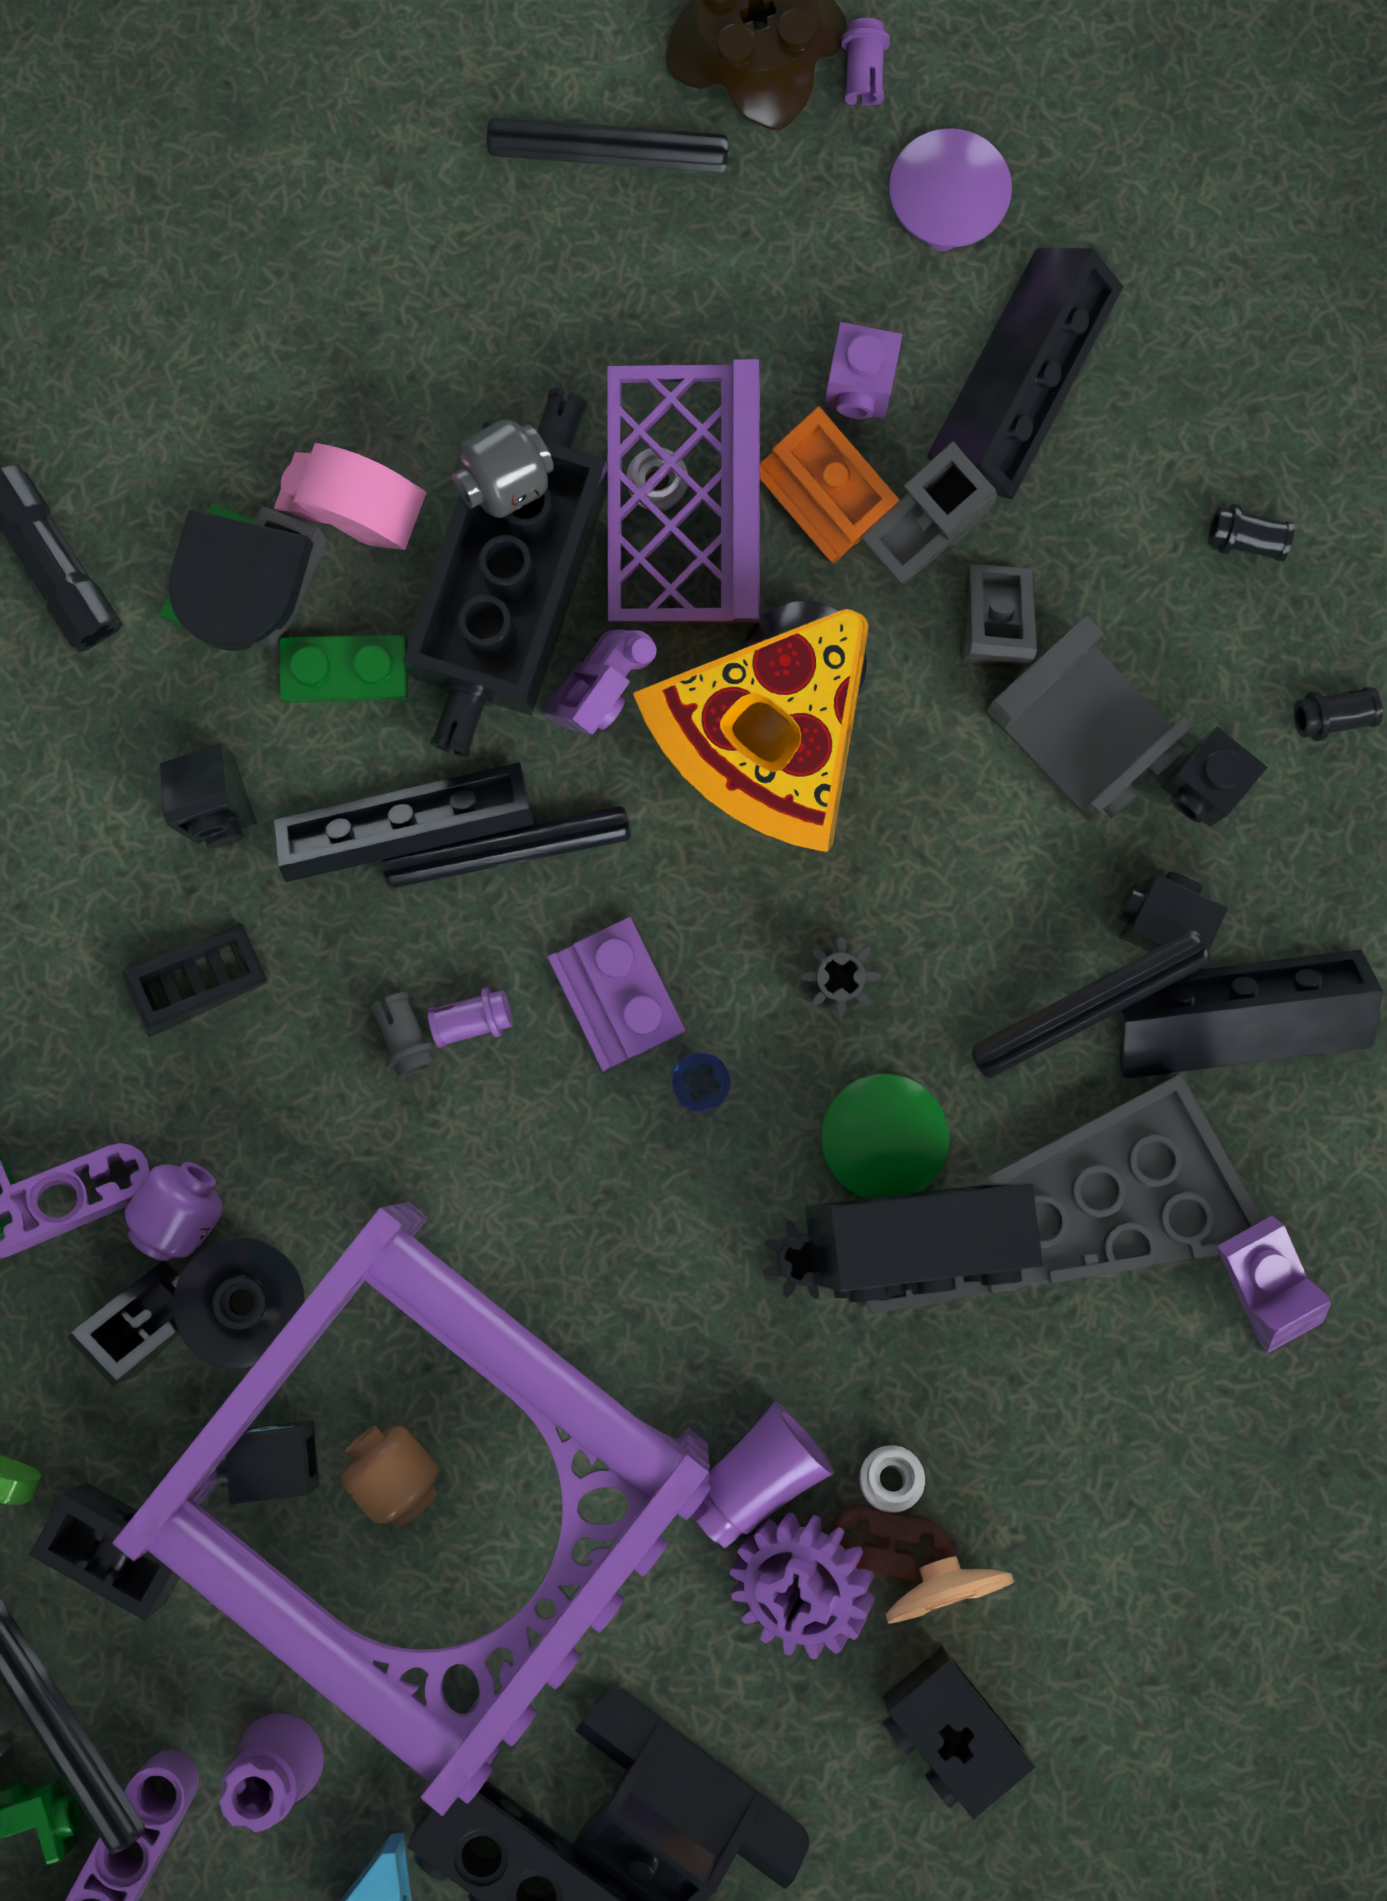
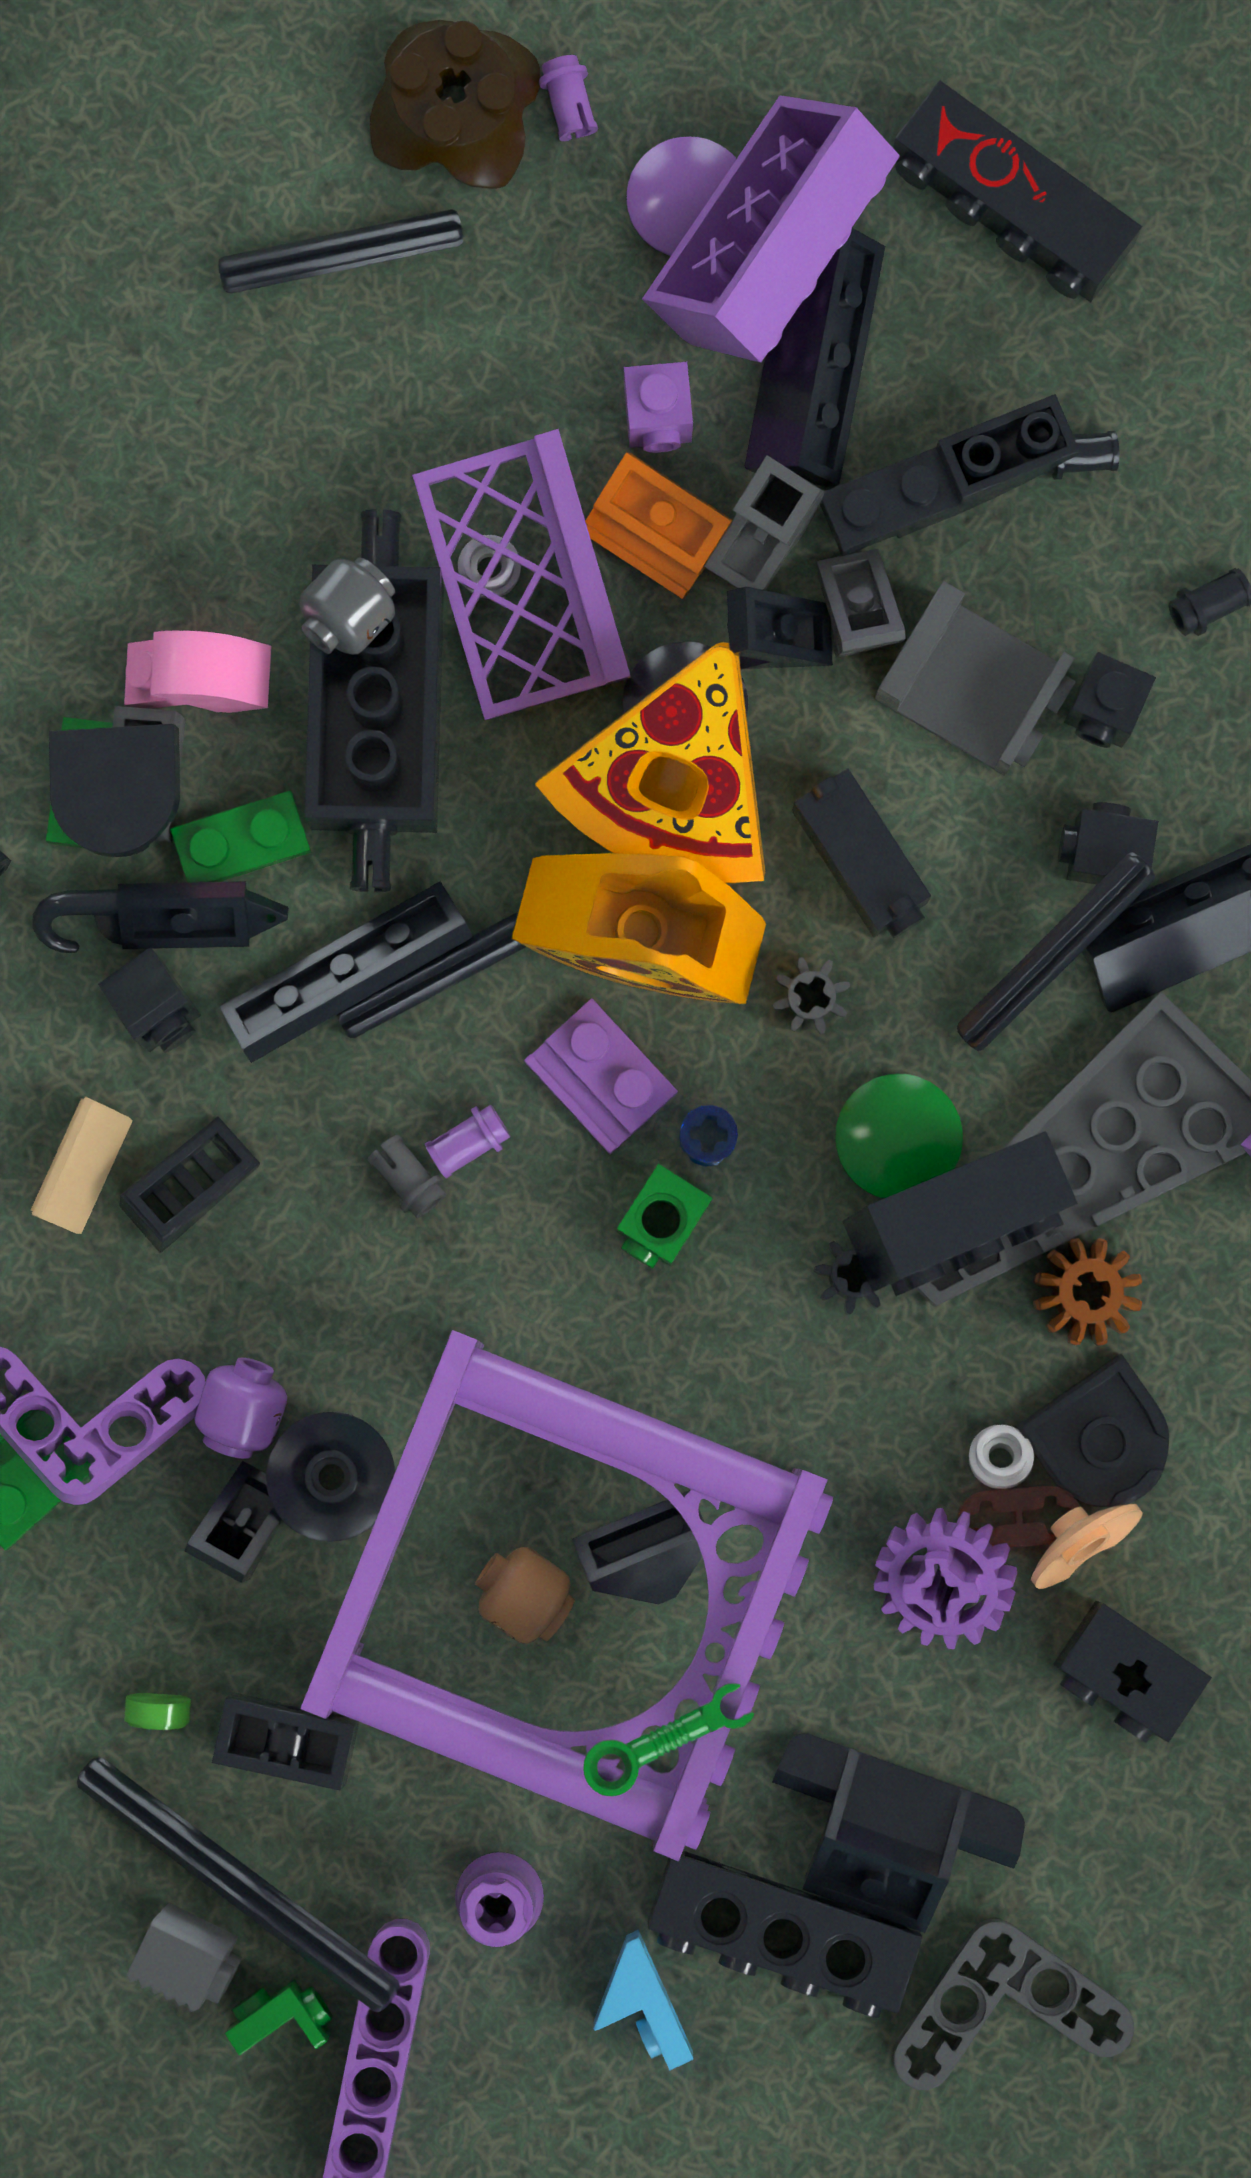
camera: 20 degrees left, 0 degrees up
(95, 932) = (81, 1165): none -> tan slope
(247, 717) = (163, 915): none -> black plate
(271, 1463) = (408, 1618): black brick -> none
(399, 1724) = (658, 1742): none -> green brick
(510, 1469) = (641, 1554): none -> black slope
(592, 688) = (493, 791): medium lavender plate -> none
(661, 1138) = (669, 1189): none -> green brick
(699, 859) = (642, 923): none -> light orange piece
(760, 1476) = (875, 1490): medium lavender plant -> none
(913, 616) = (778, 629): none -> black slope
(930, 856) = (862, 855): none -> black brick
(995, 1489) = (1102, 1437): none -> black tile
(1009, 1363) = (1096, 1272): none -> dark orange gear
(1023, 230) = (771, 227): none -> medium lavender brick
(1123, 521) = (951, 477): none -> black slope
(1262, 269) = (1014, 193): none -> black brick

